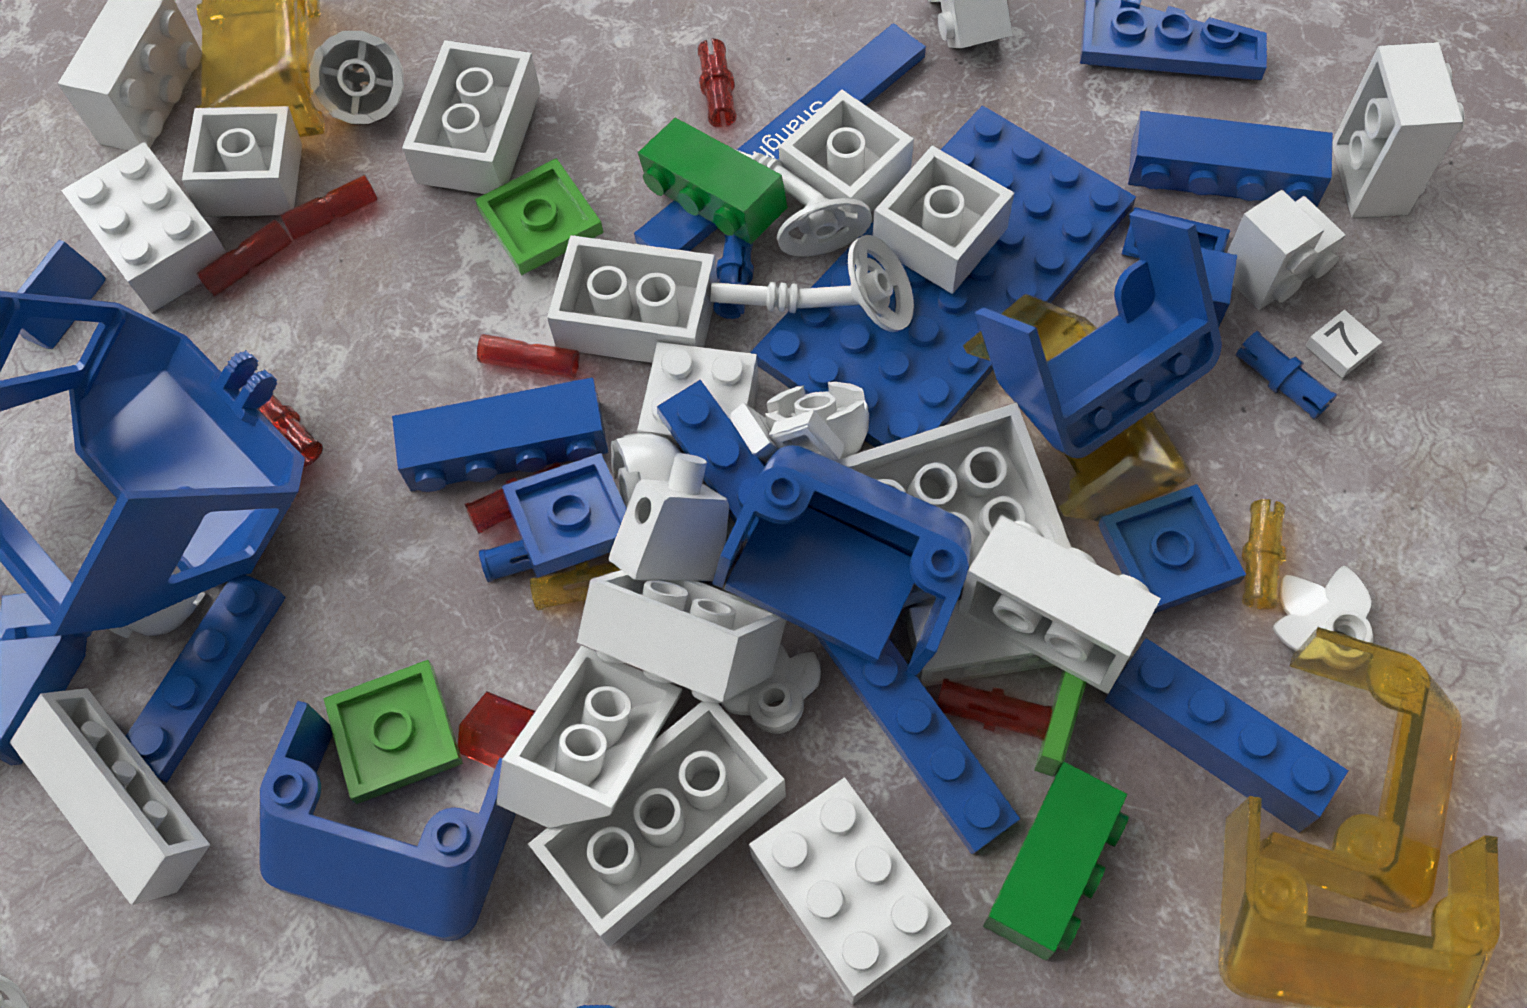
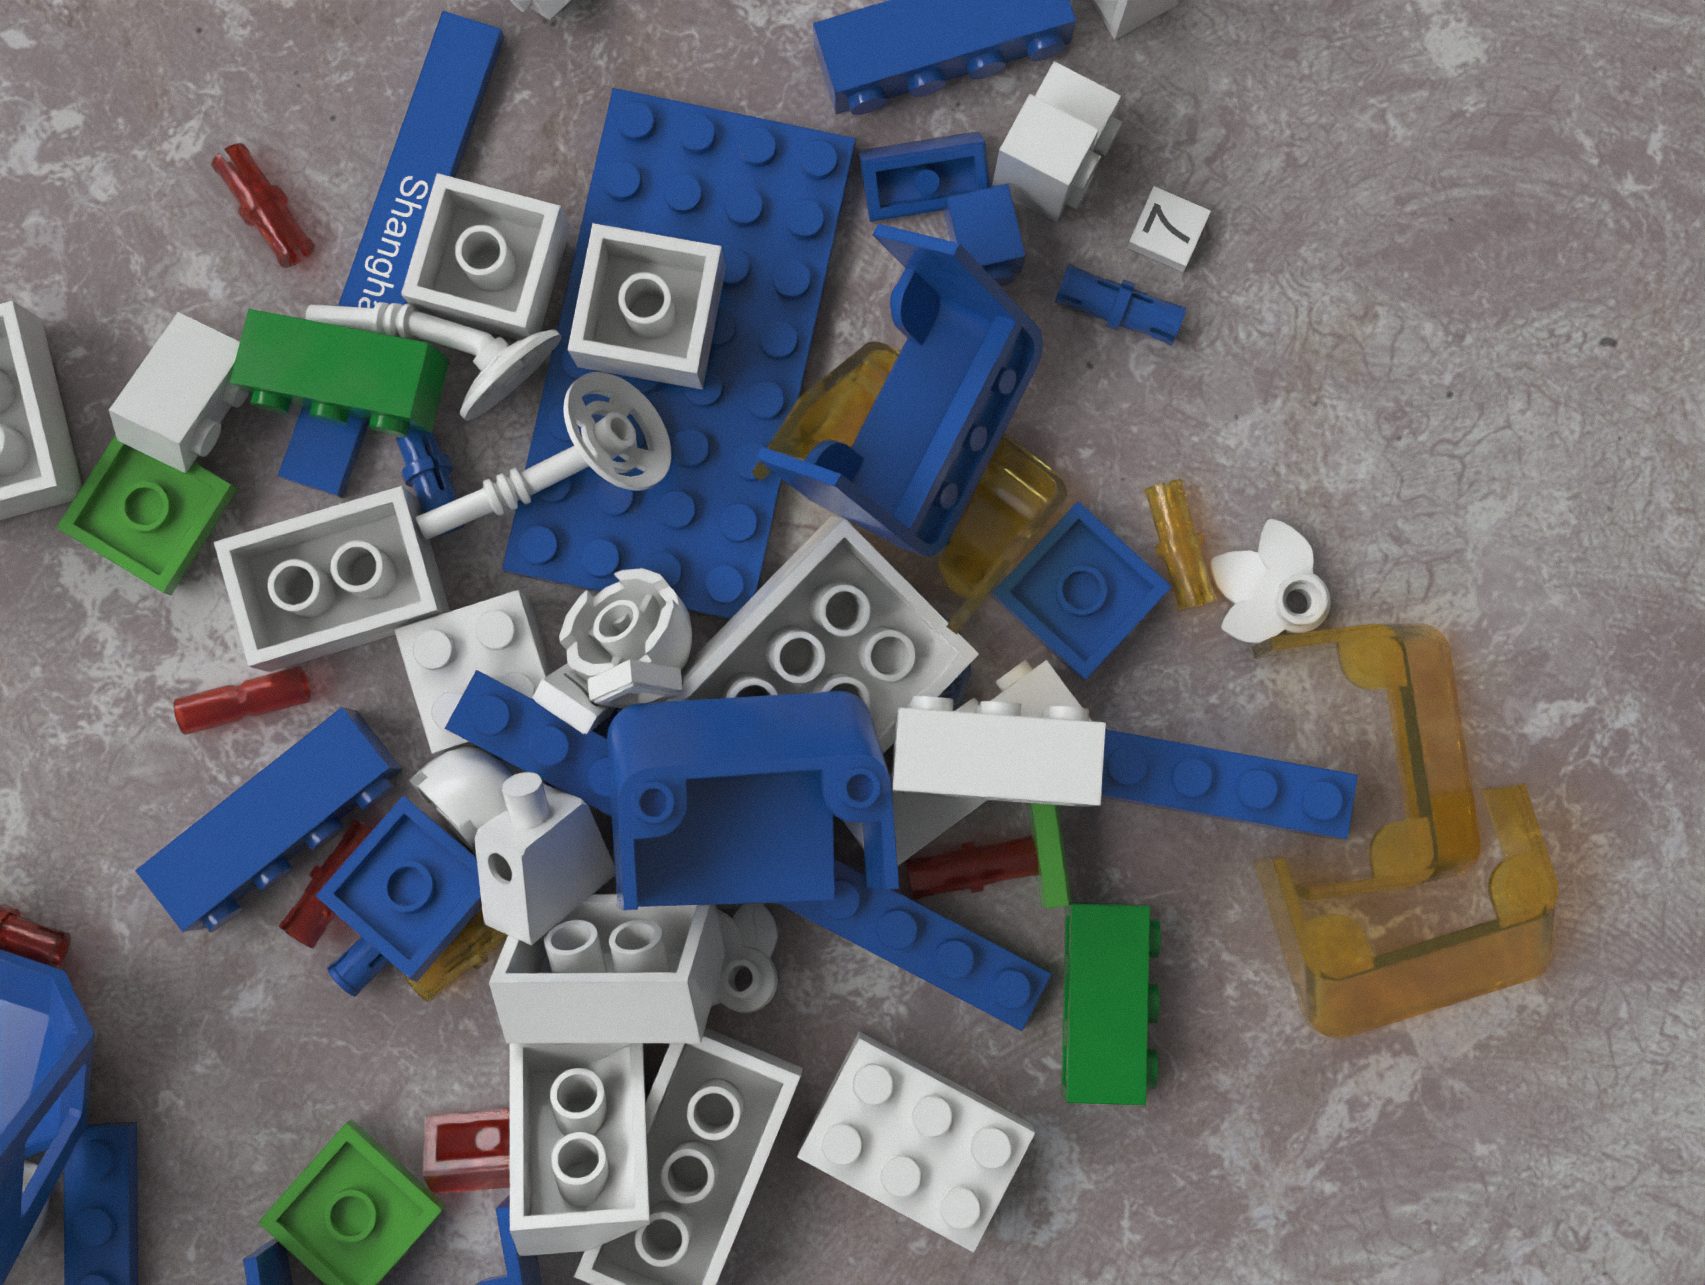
camera: 30 degrees left, 20 degrees up
(598, 153) = (179, 394): none -> white brick

